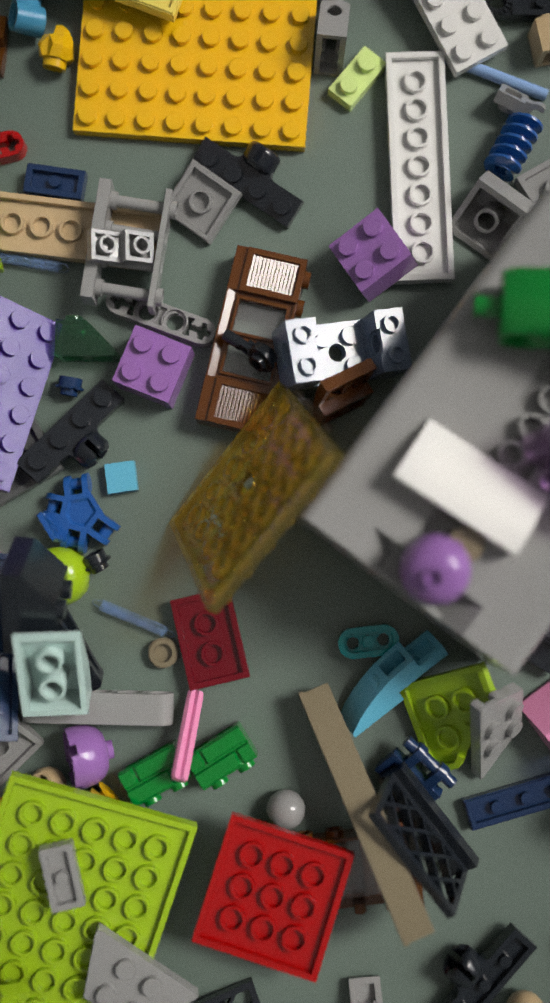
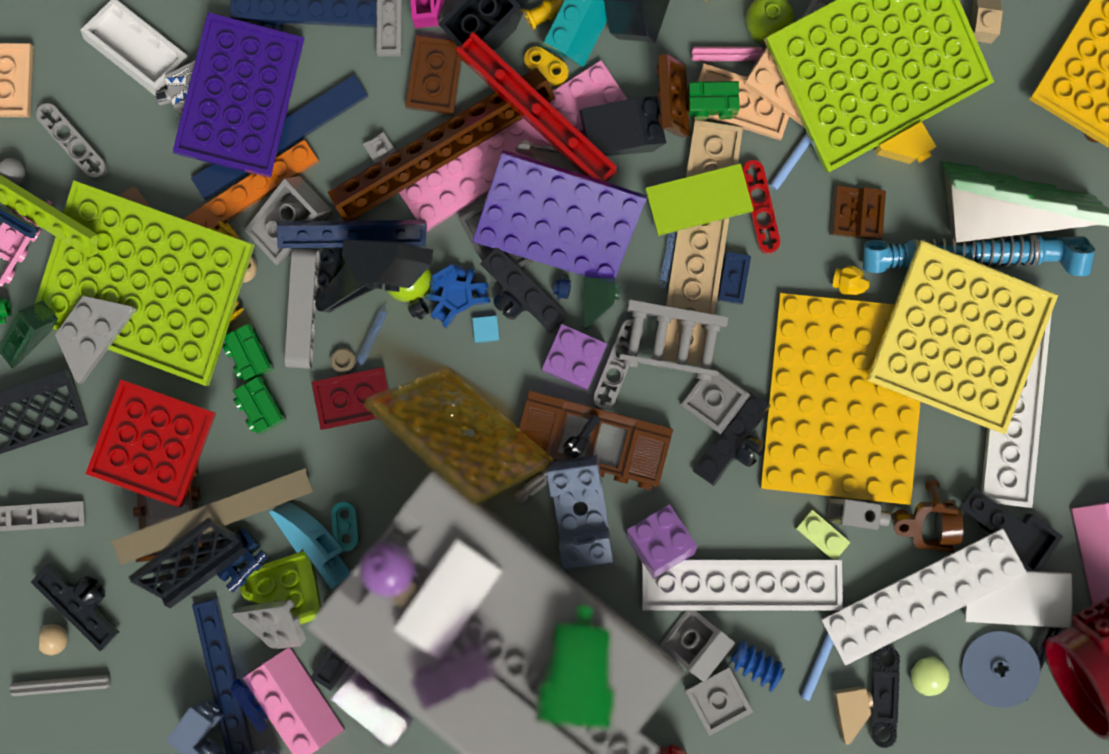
camera: 95 degrees right, 0 degrees up
(52, 673) = (326, 277): light aqua slope -> none
(62, 875) = (174, 282): light grey plate -> none
(87, 755) = (264, 299): medium lavender cylinder -> none
(120, 248) = (669, 333): light grey slope -> none
(187, 736) = (276, 379): bright pink axle -> none
(286, 808) = (216, 455): light grey piece -> none
(343, 392) = (544, 512): reddish brown slope -> none
(512, 100) = (796, 670): light grey plate -> none

